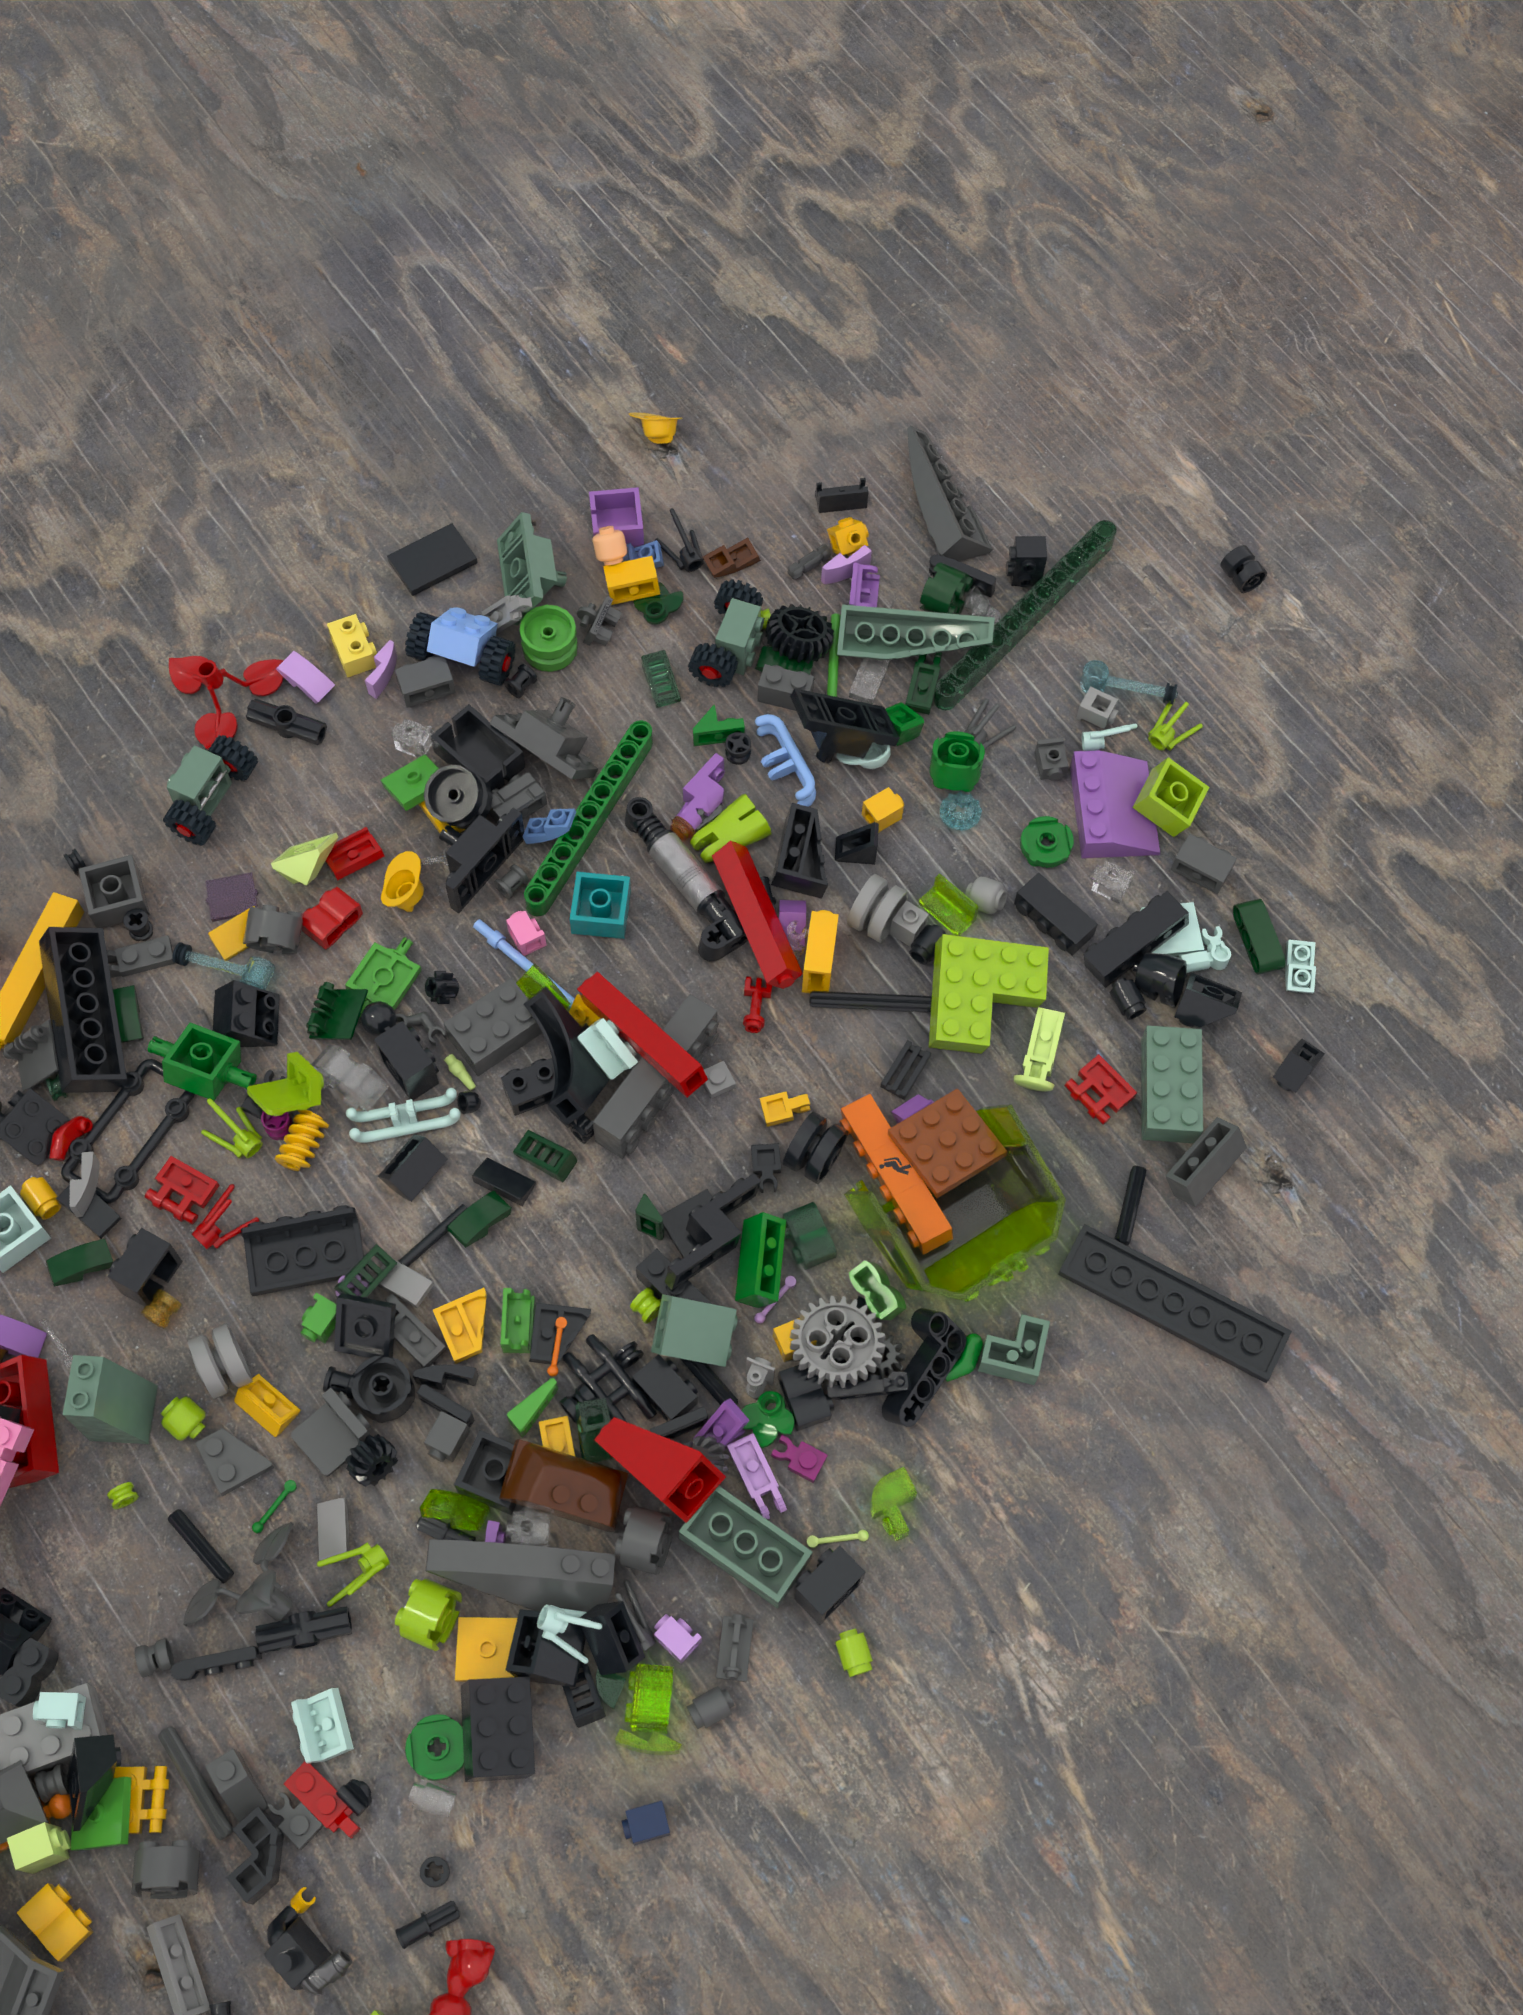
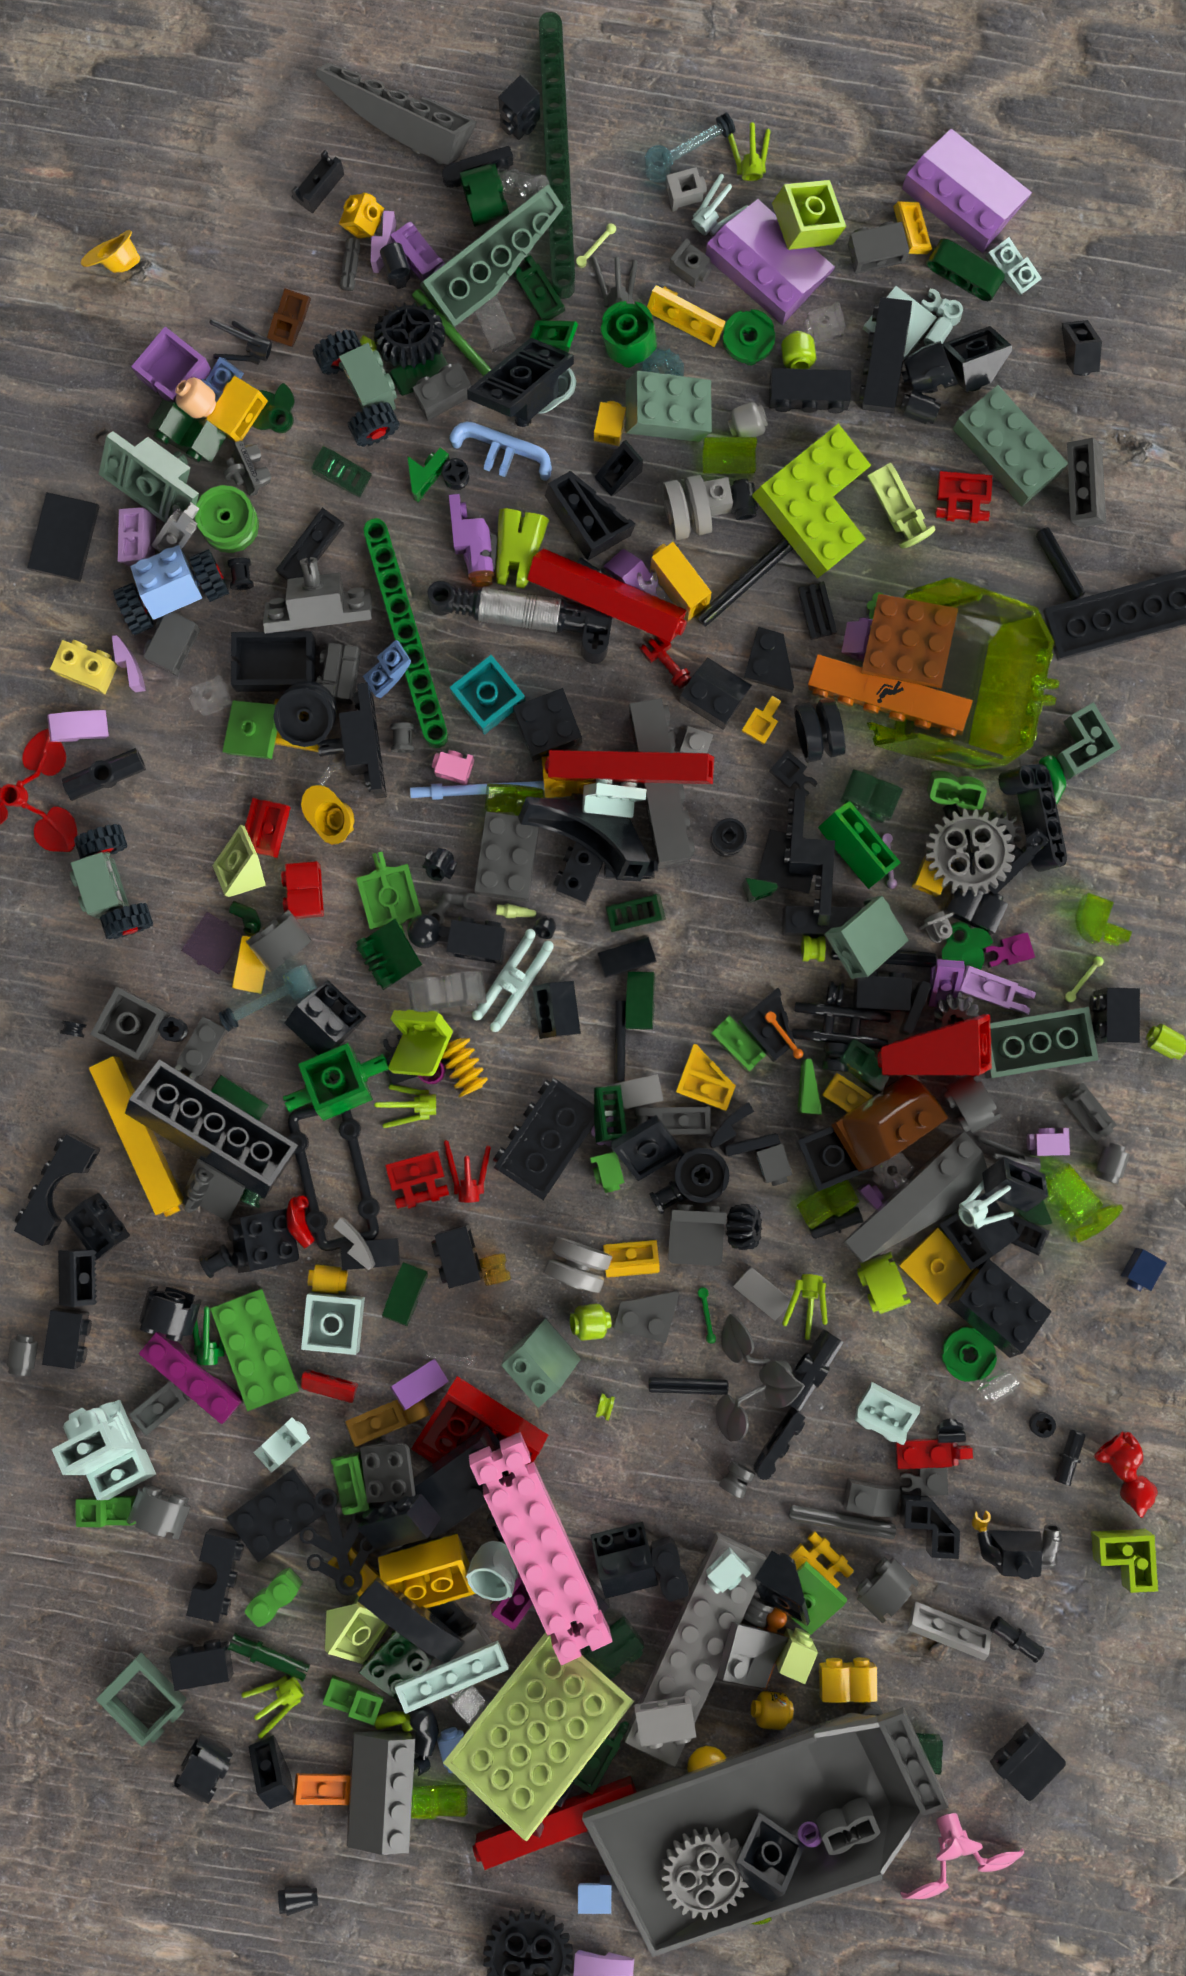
camera: 45 degrees left, 20 degrees up
(275, 895) = (249, 917): none -> dark green arm
(478, 594) = (135, 535): none -> lavender hinge
(584, 568) = (193, 436): none -> dark green brick
(594, 706) = (310, 544): none -> black tile
(624, 962) = (547, 724): none -> black brick
(668, 1163) = (728, 837): none -> black wheel
(767, 1055) = (714, 693): none -> black slope
(832, 1072) = (769, 661): none -> black wing
(836, 583) = (395, 265): none -> black piece
(934, 831) = (668, 406): none -> sand green brick
(976, 694) = (582, 260): none -> yellowish green hinge
(1012, 789) = (685, 316): none -> yellow hinge
(1073, 880) = (798, 350): none -> lime head
(1245, 874) = (914, 226): none -> yellow plate
(1313, 884) = (965, 190): none -> medium lavender slope

